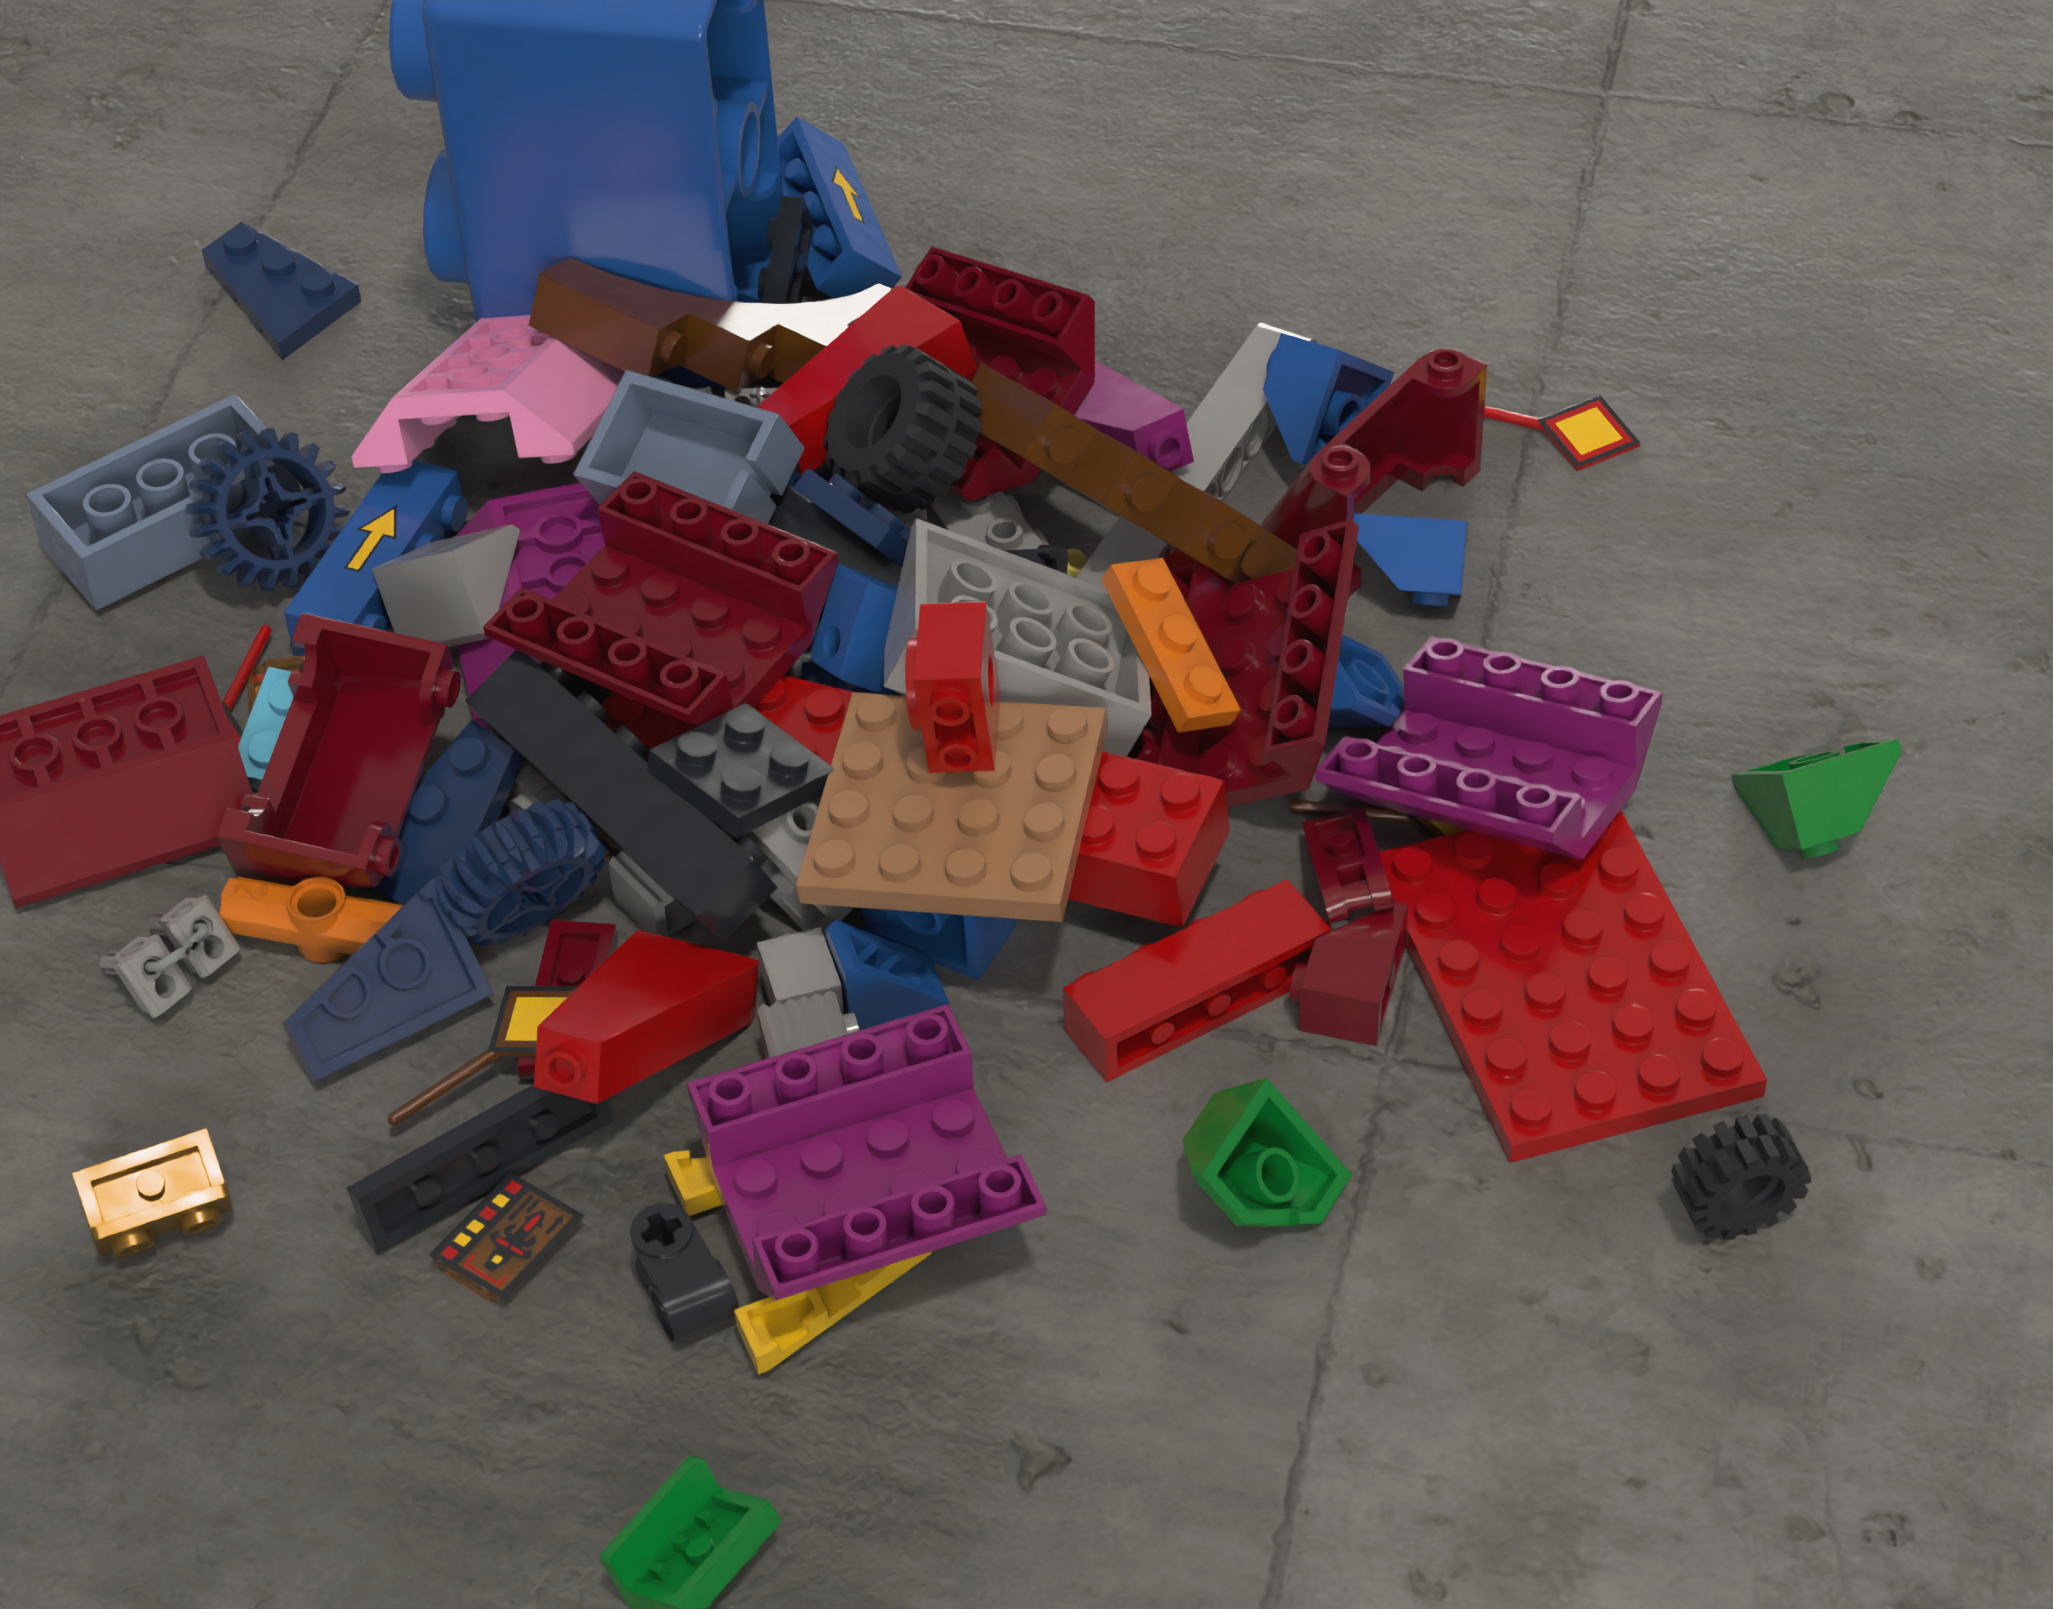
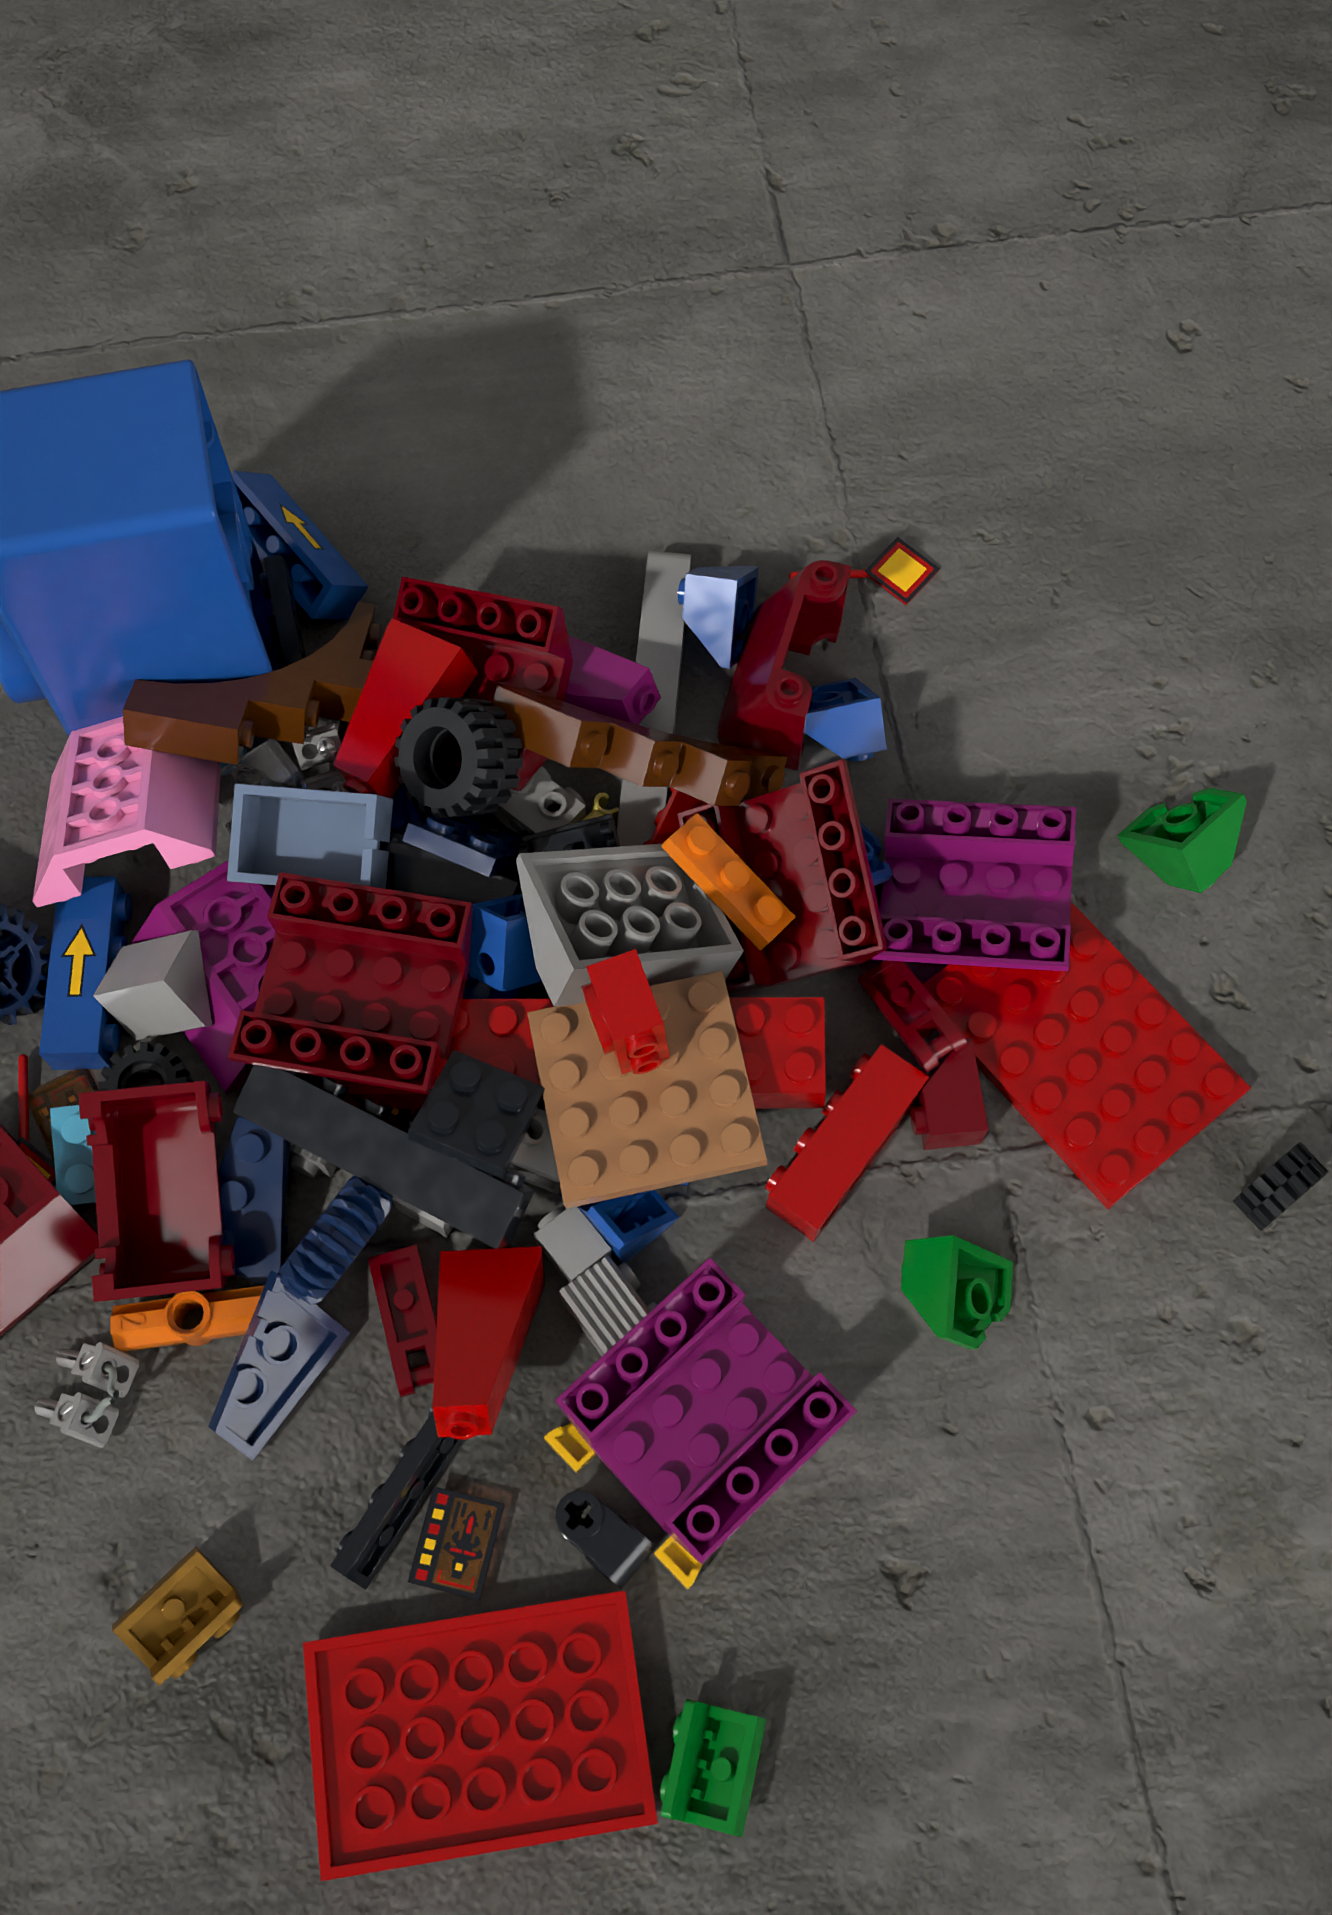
camera: 25 degrees left, 20 degrees up
(432, 1426) = (476, 1735): none -> red plate
(513, 1035) = (397, 1358): piece -> none

